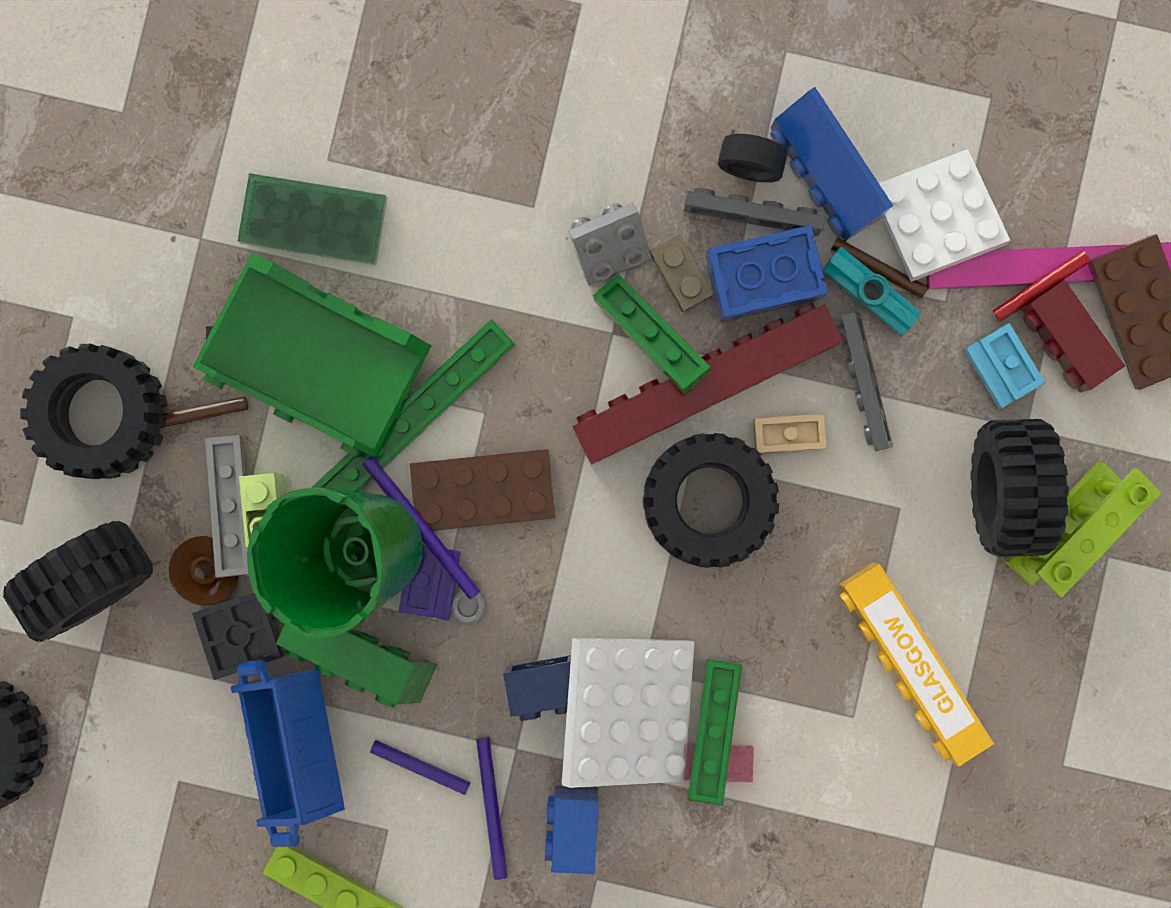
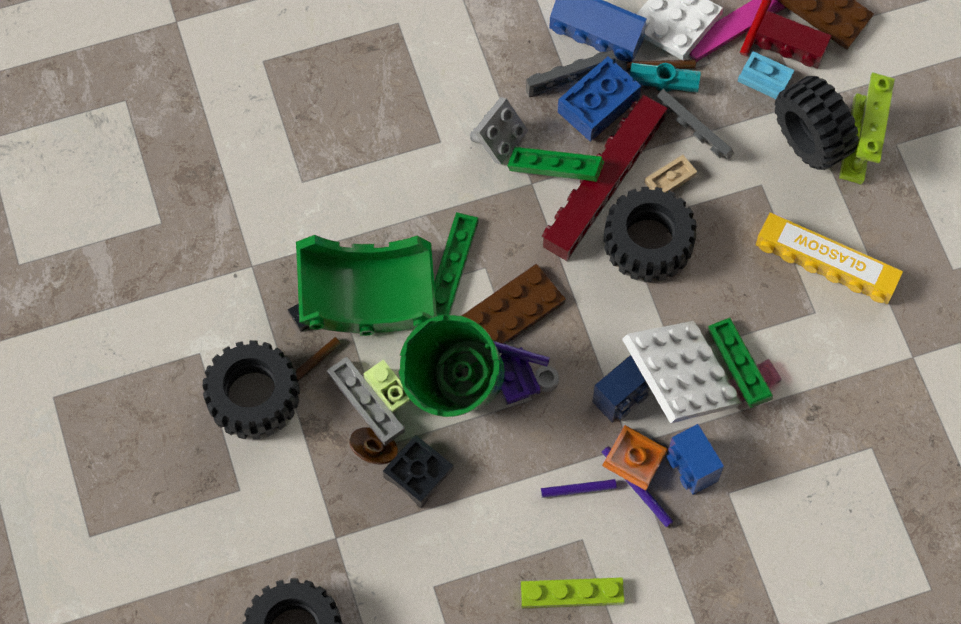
camera: 30 degrees left, 20 degrees down
(77, 580) = (304, 480): black tyre -> none
(289, 749) = (491, 510): blue container -> none
(312, 219) = (315, 213): clear green plate -> none
(363, 664) = (498, 439): green wedge -> none
(509, 774) = (635, 457): none -> orange plate
(681, 273) = (550, 128): dark tan plate -> none
(752, 158) = (551, 43): black tyre -> none

